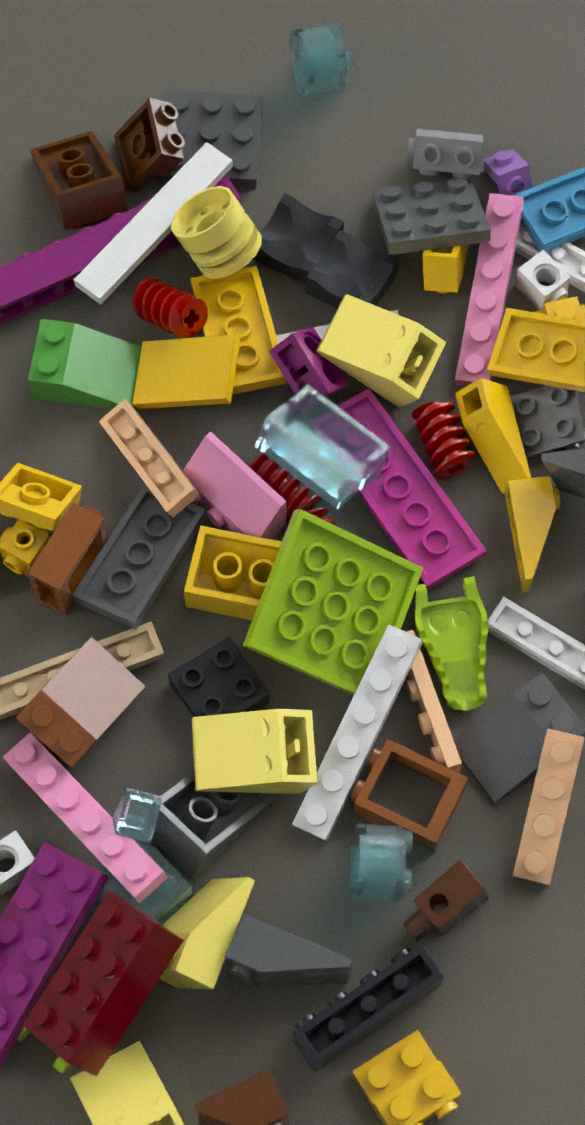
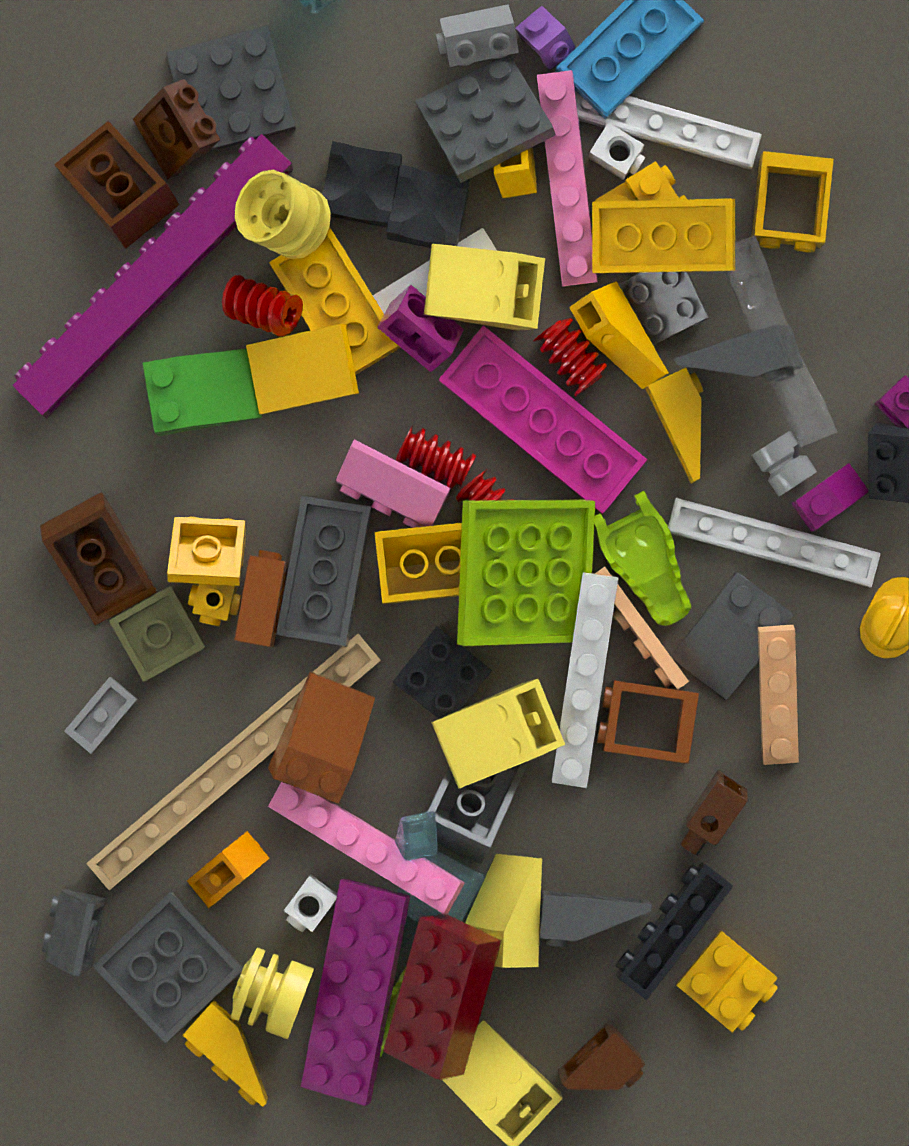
camera: 25 degrees left, 20 degrees up
(149, 458) = (298, 471): light nougat plate -> none
(151, 224) = (215, 220): white tile -> none
(322, 446) = (464, 416): clear light blue piece -> none
(379, 863) = (644, 798): clear light blue brick -> none

